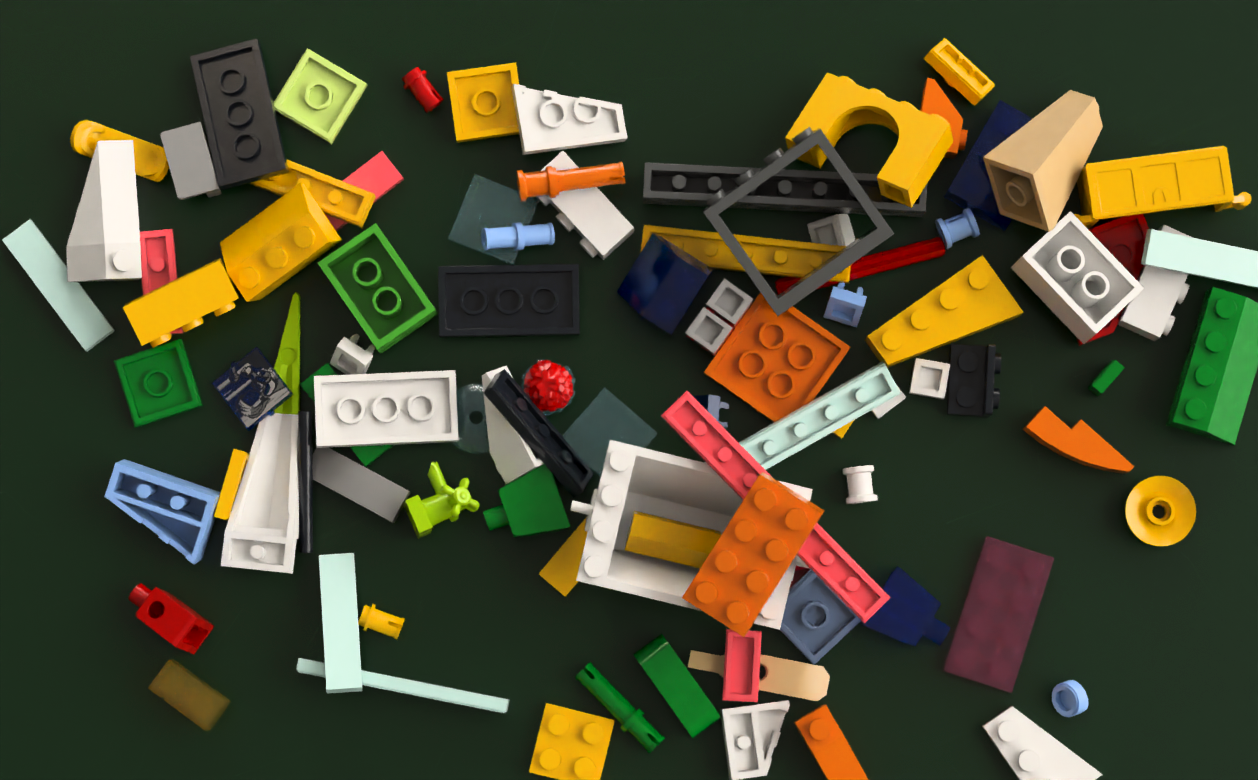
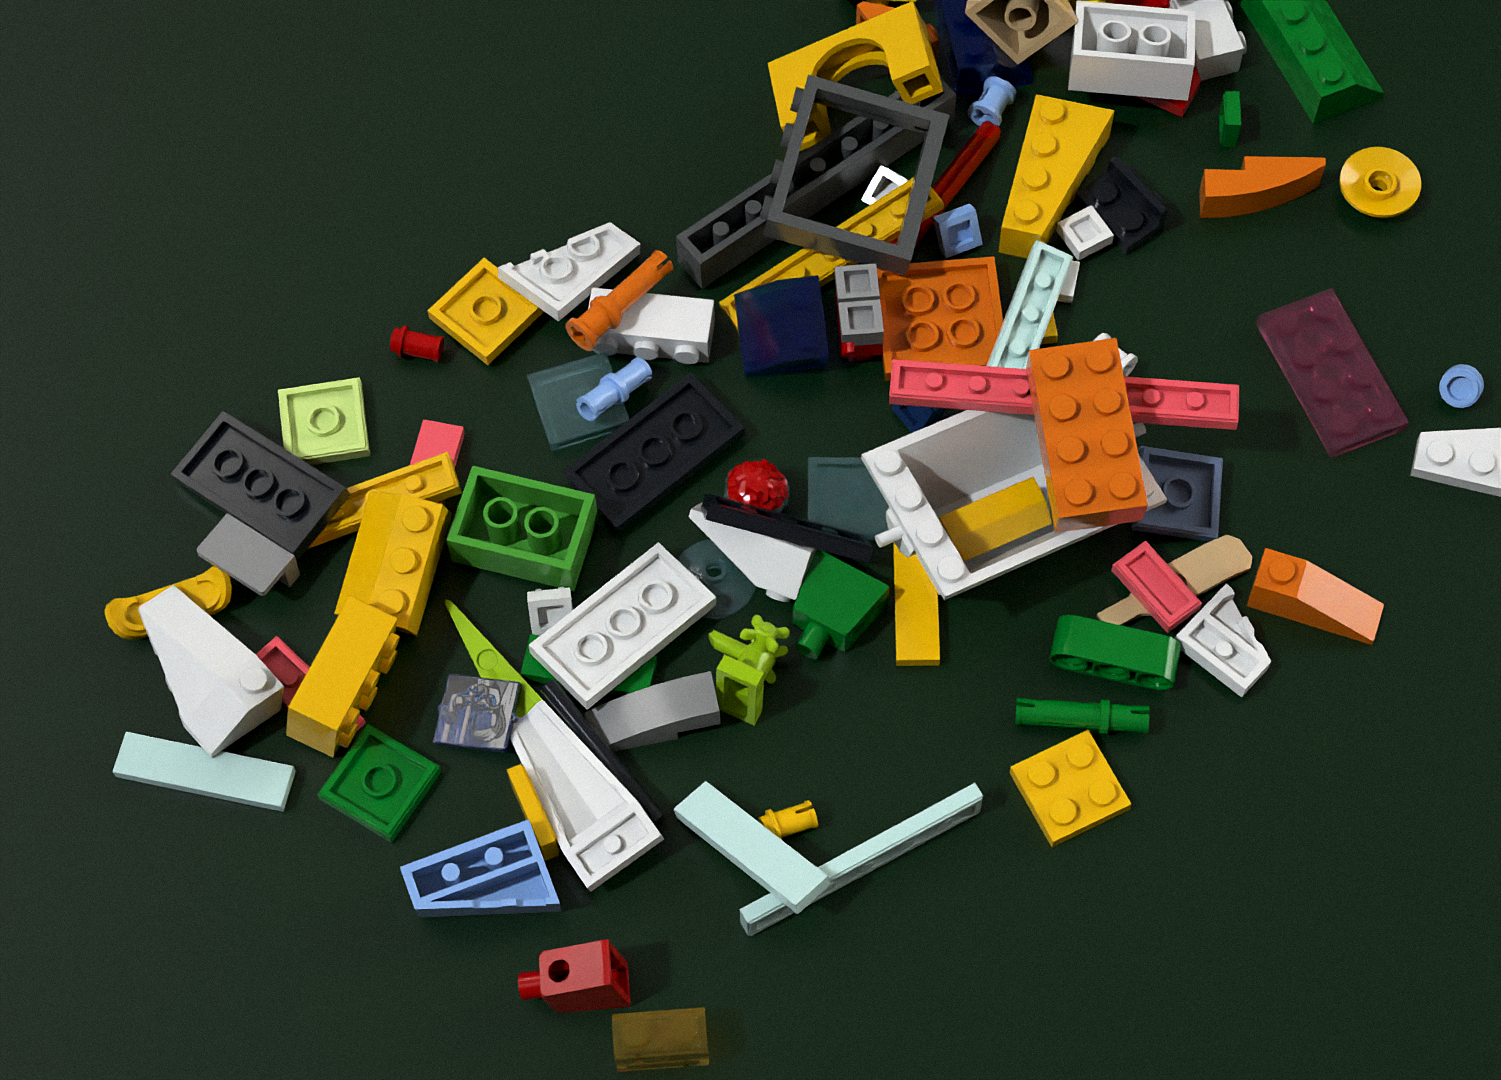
camera: 40 degrees left, 20 degrees down
(907, 612) = (1261, 432): clear blue torso -> none

